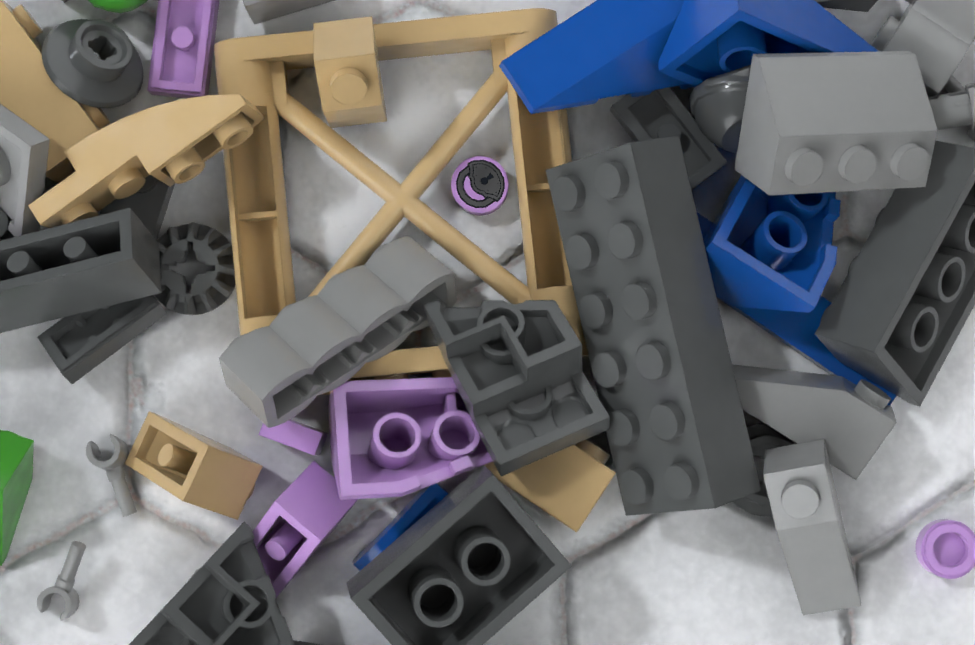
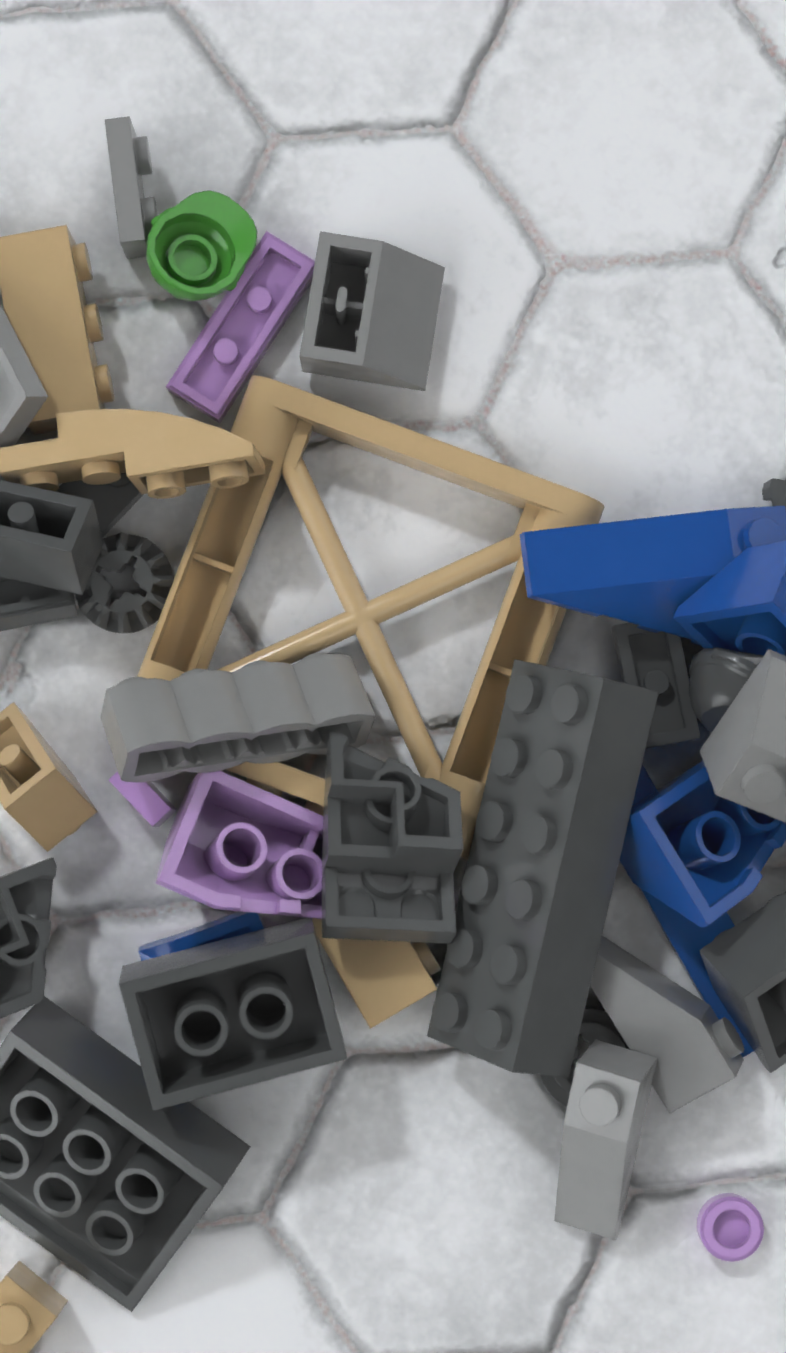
camera: 30 degrees right, 0 degrees up
(81, 75) = (108, 337): dark grey piece -> none
(299, 524) = (104, 885): lavender slope -> none
(348, 72) = (370, 467): tan slope -> none
(479, 185) = (445, 639): tile -> none

